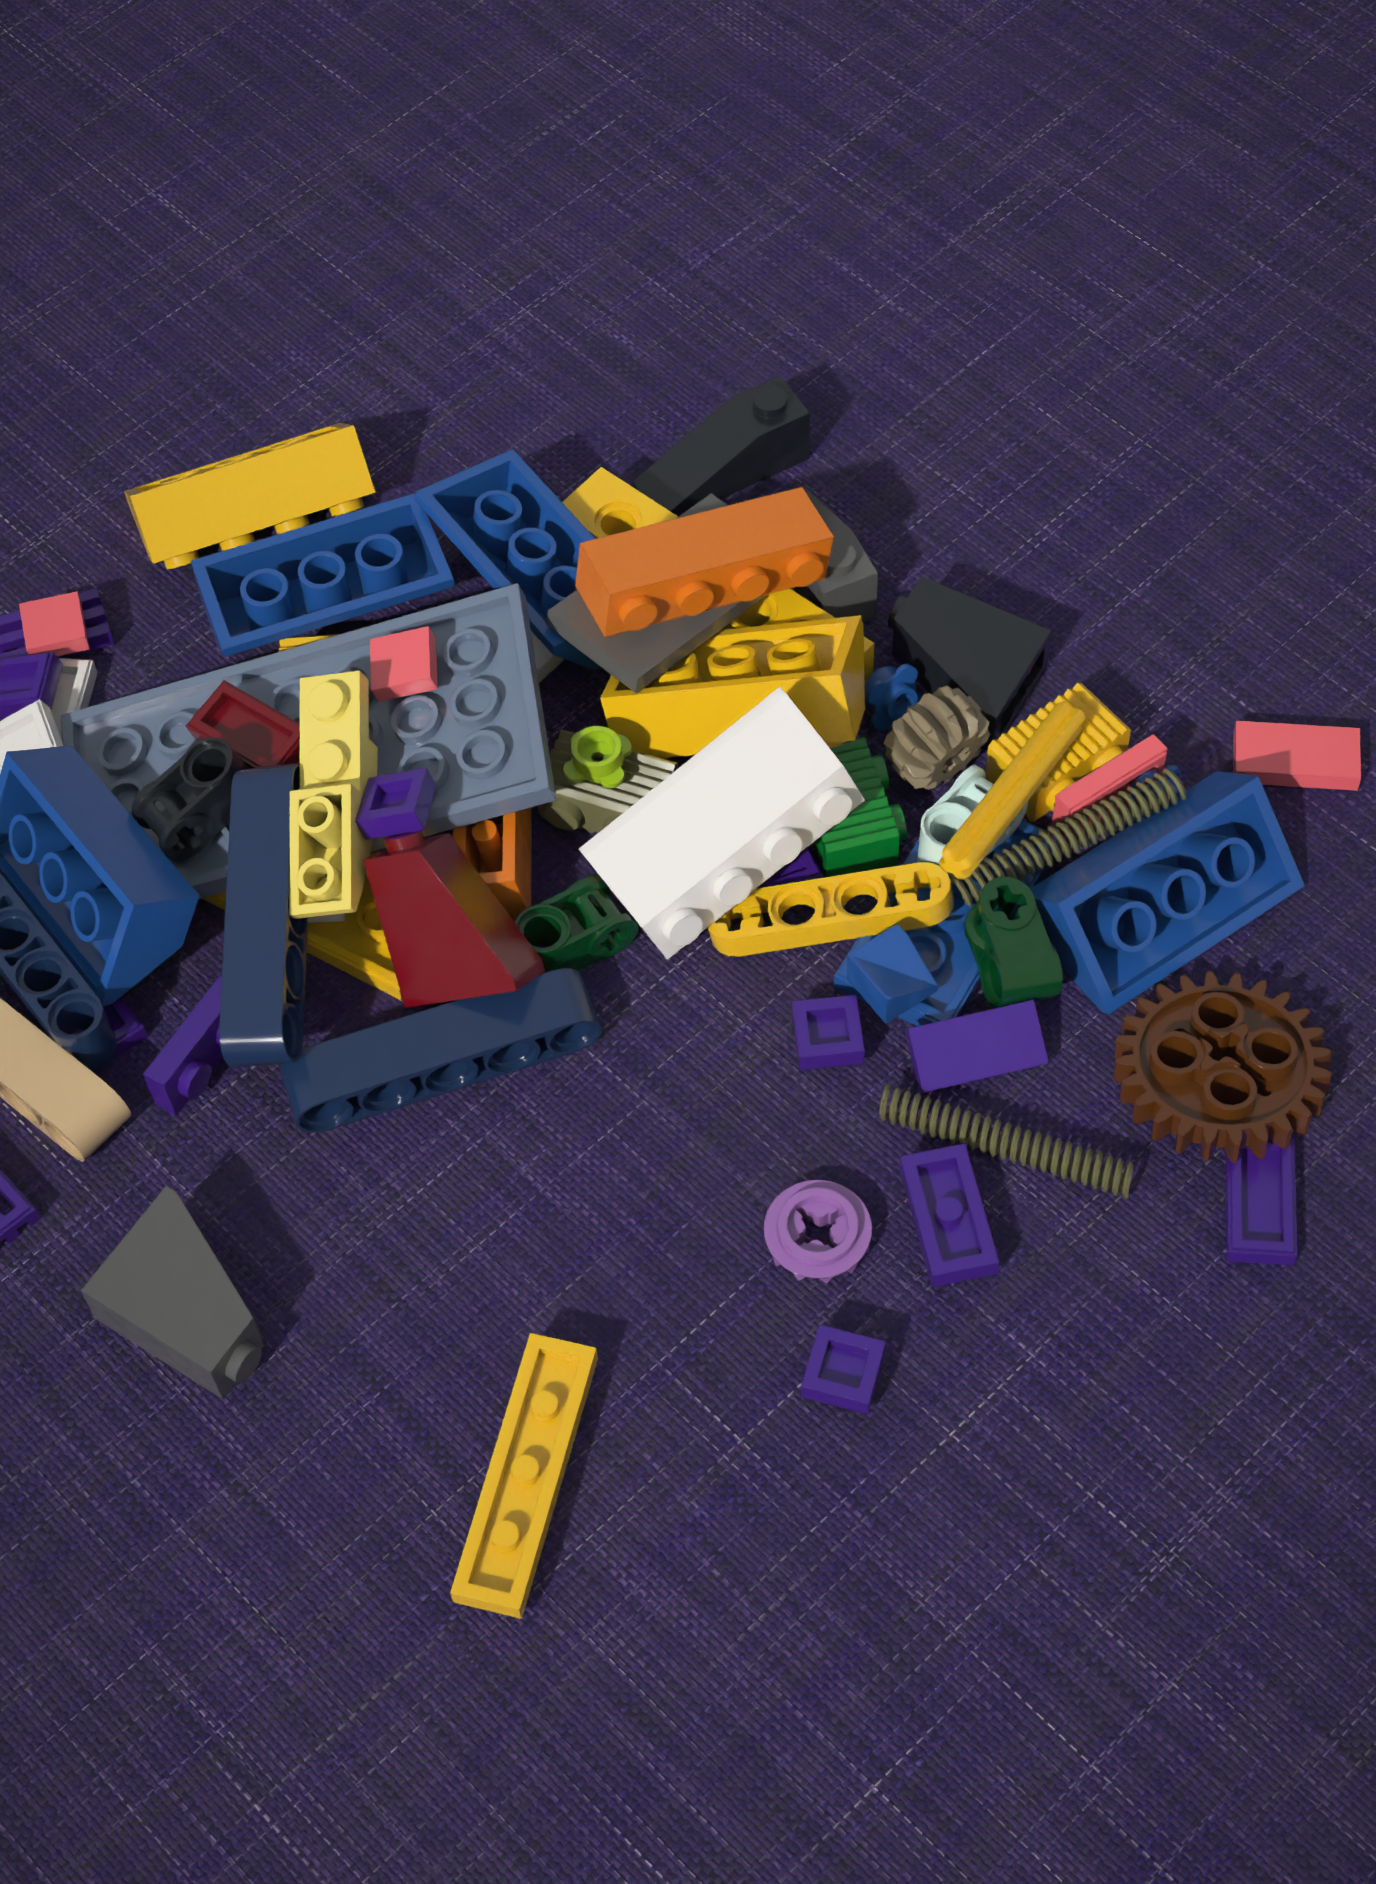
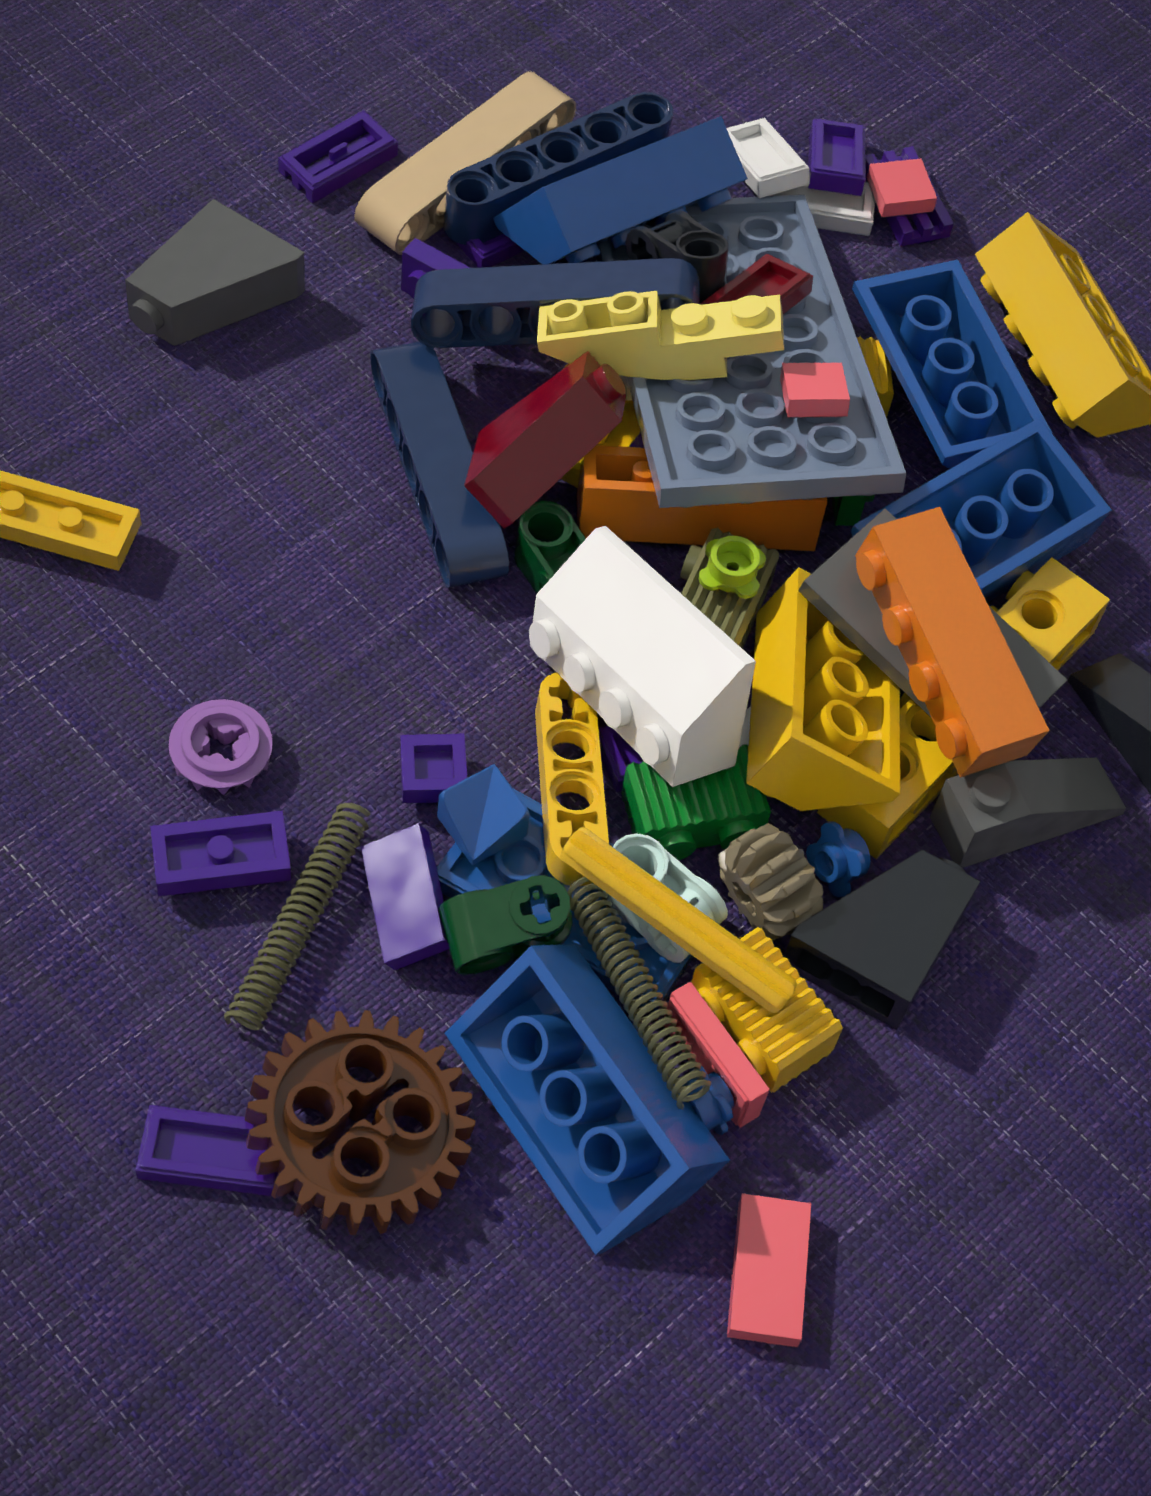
camera: 80 degrees right, 0 degrees up
(396, 803) = (648, 375): dark purple plate -> none
(843, 1369) = (71, 751): dark purple plate -> none

